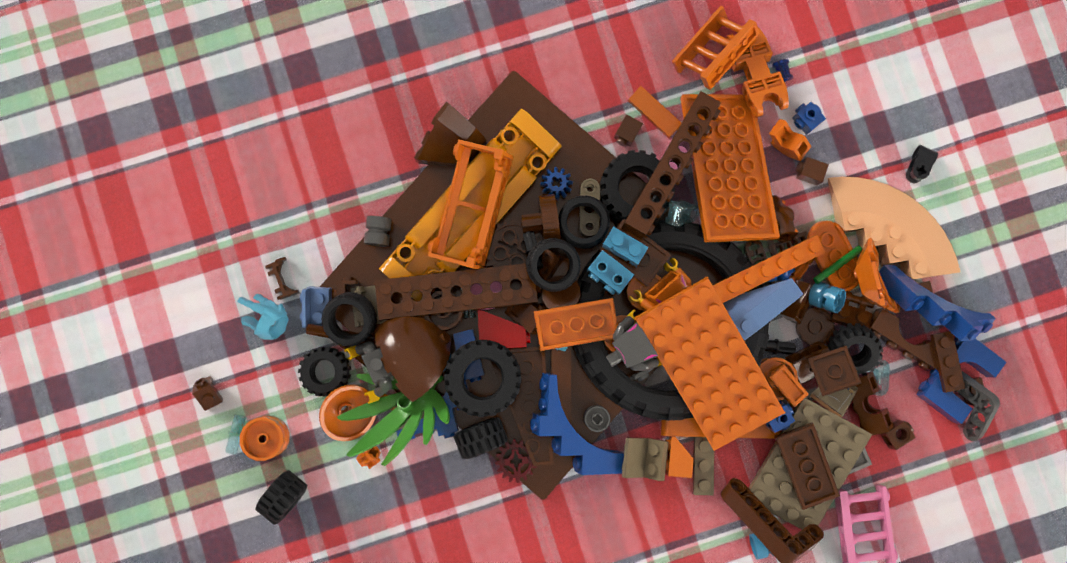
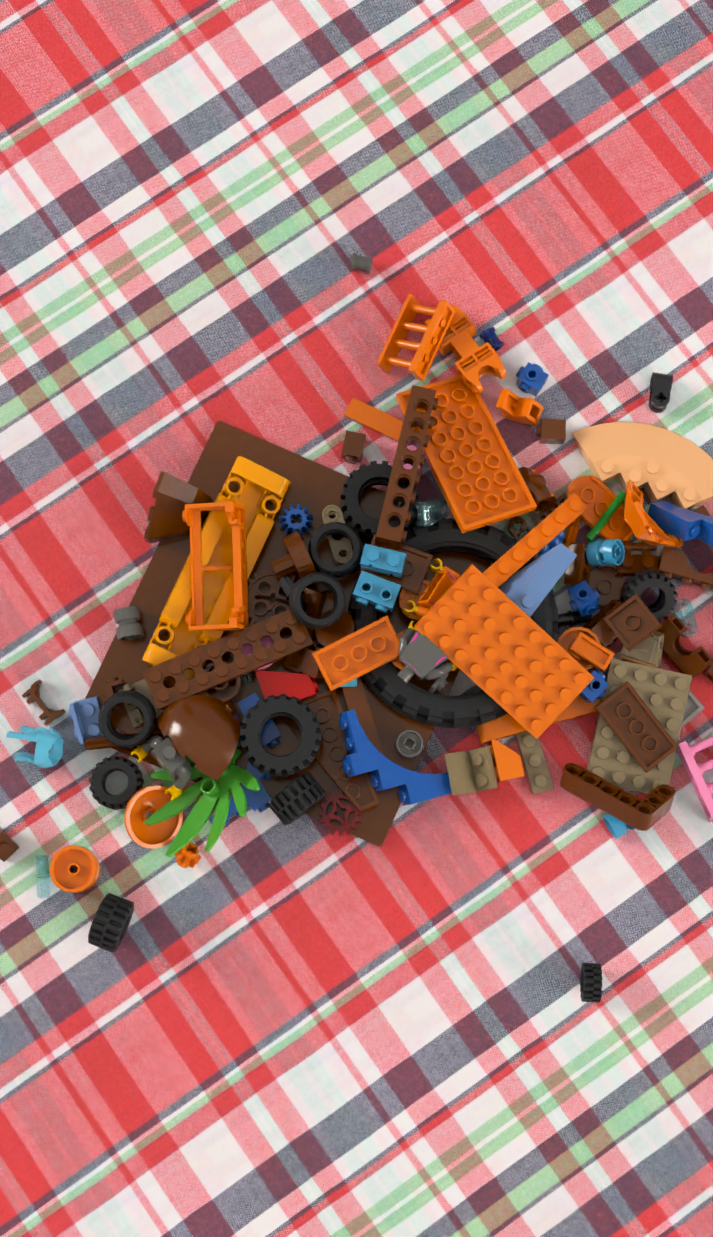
camera: 10 degrees left, 5 degrees down
(794, 334) = (583, 599): none -> blue brick

